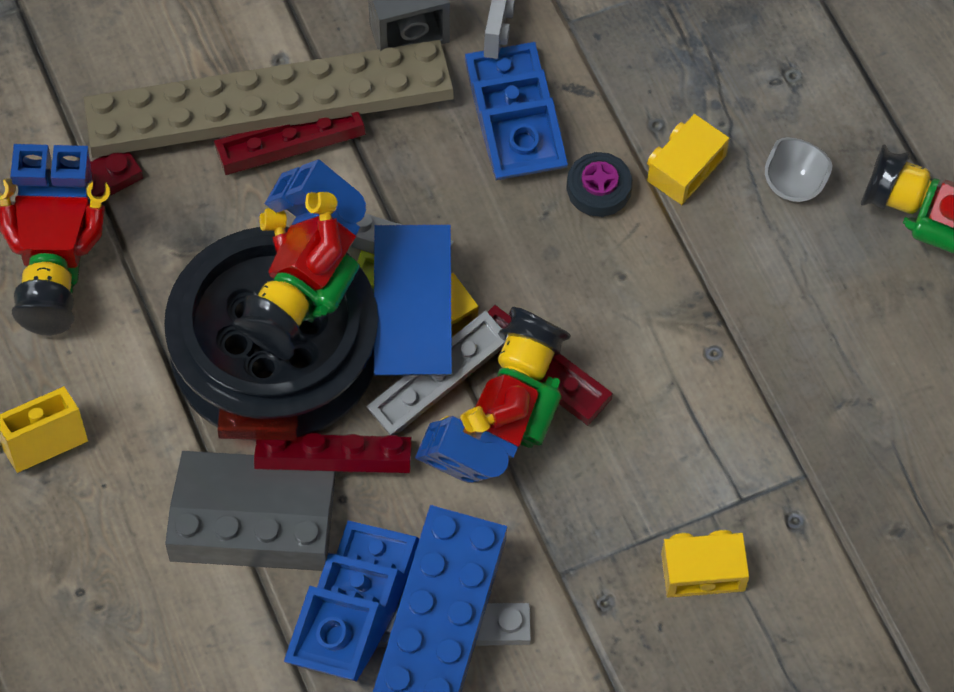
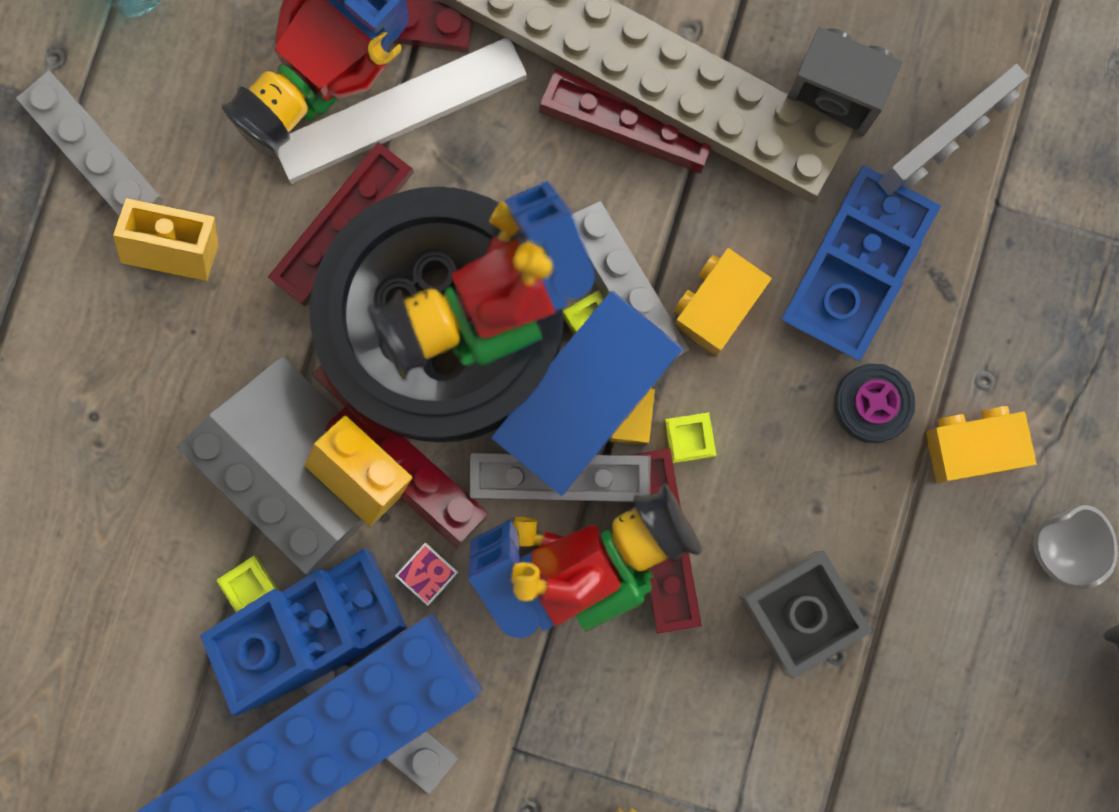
camera: 45 degrees right, 20 degrees up
(130, 241) = (401, 109): none -> white tile
(149, 348) = (373, 180): none -> dark red plate
(283, 610) = (246, 583): none -> neon yellow tile
(303, 463) = (357, 470): none -> yellow brick
(404, 507) = (427, 574): none -> tile
(448, 194) = (721, 300): none -> yellow brick
(502, 291) = (690, 437): none -> neon yellow tile
(669, 332) = (805, 614): none -> dark grey brick

